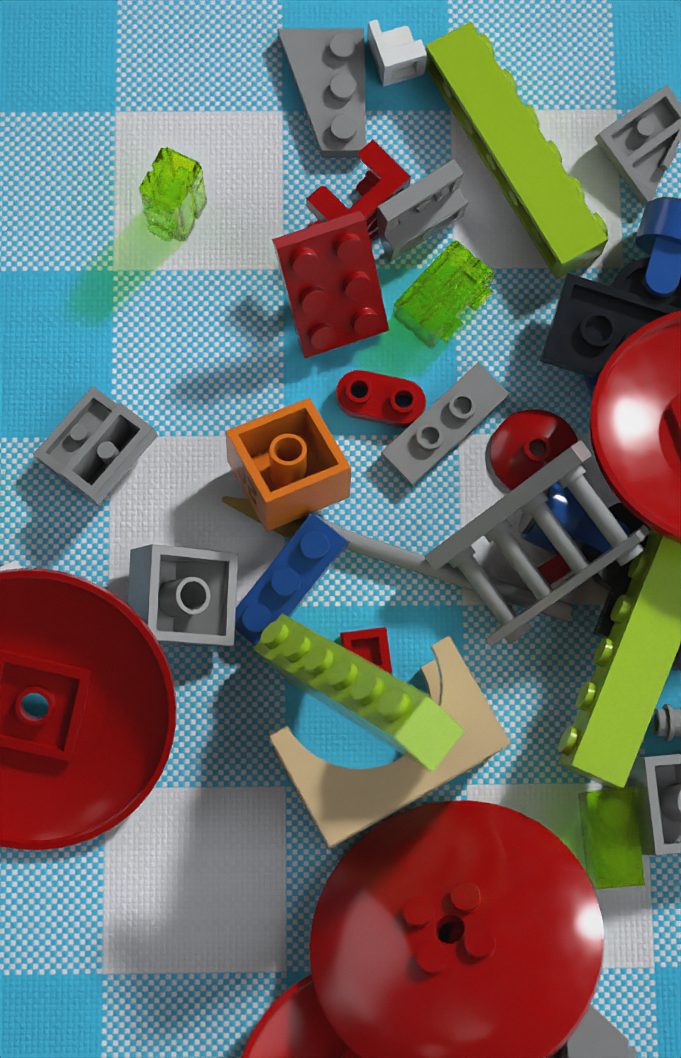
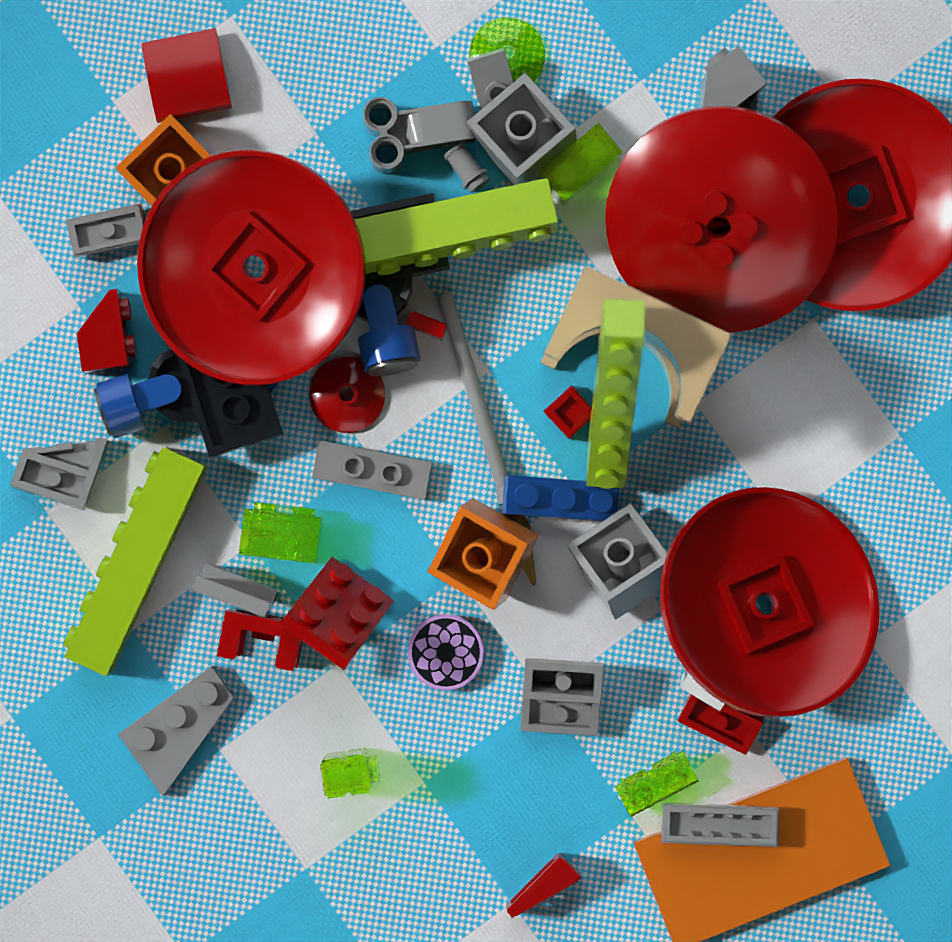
camera: 125 degrees left, 10 degrees up
(220, 372) = (445, 652): none -> tile
(379, 402) = (385, 527): red plate -> none
(396, 53) = (118, 698): white panel -> none
(531, 499) = (397, 369): light grey fence -> none

